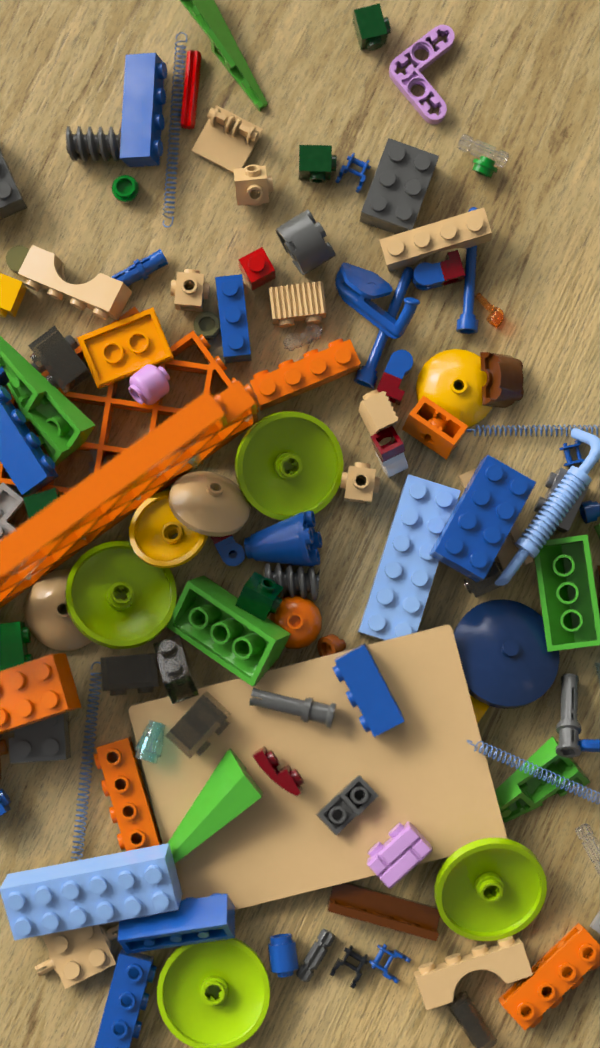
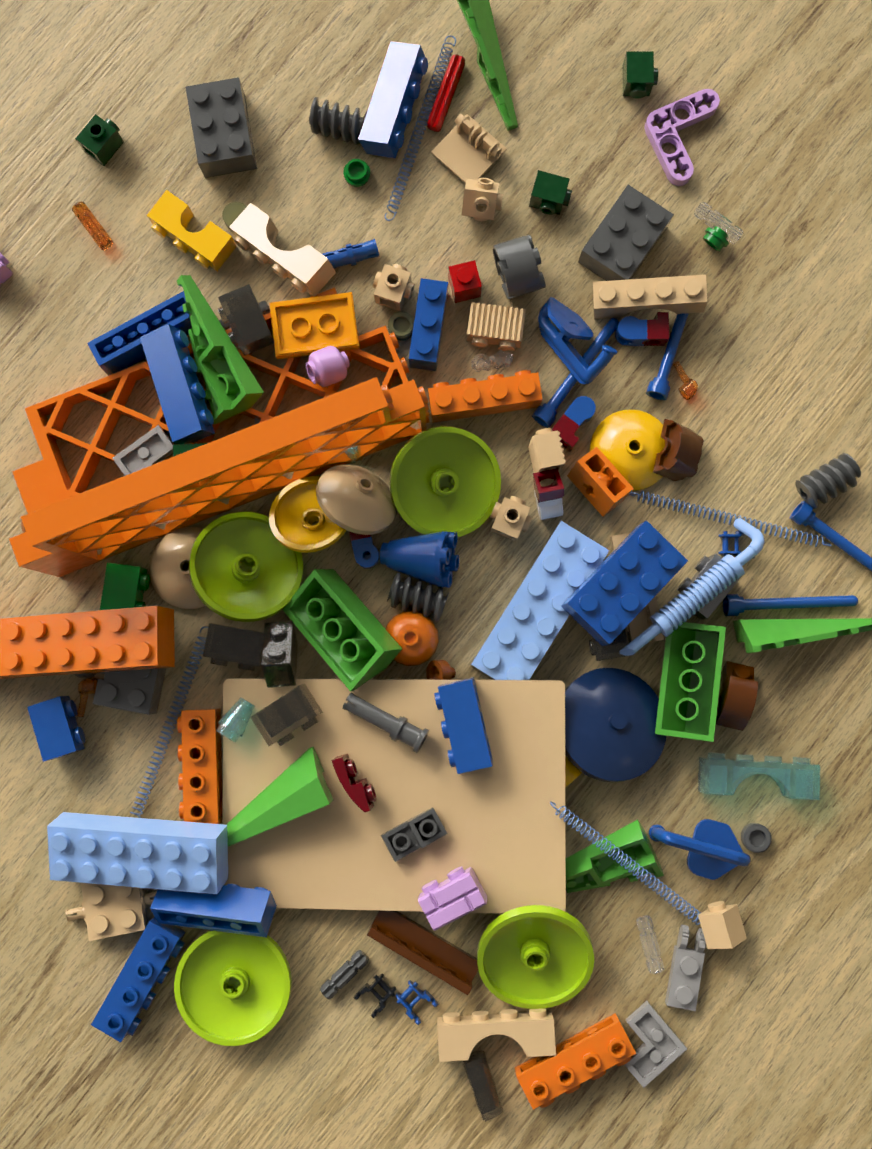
camera: 25 degrees right, 0 degrees up
(260, 596) = (381, 604): dark green brick -> none
(283, 955) = (312, 965): blue brick -> none
(345, 169) = (579, 207): blue piece -> none
(568, 726) = (656, 815): dark grey pin -> none

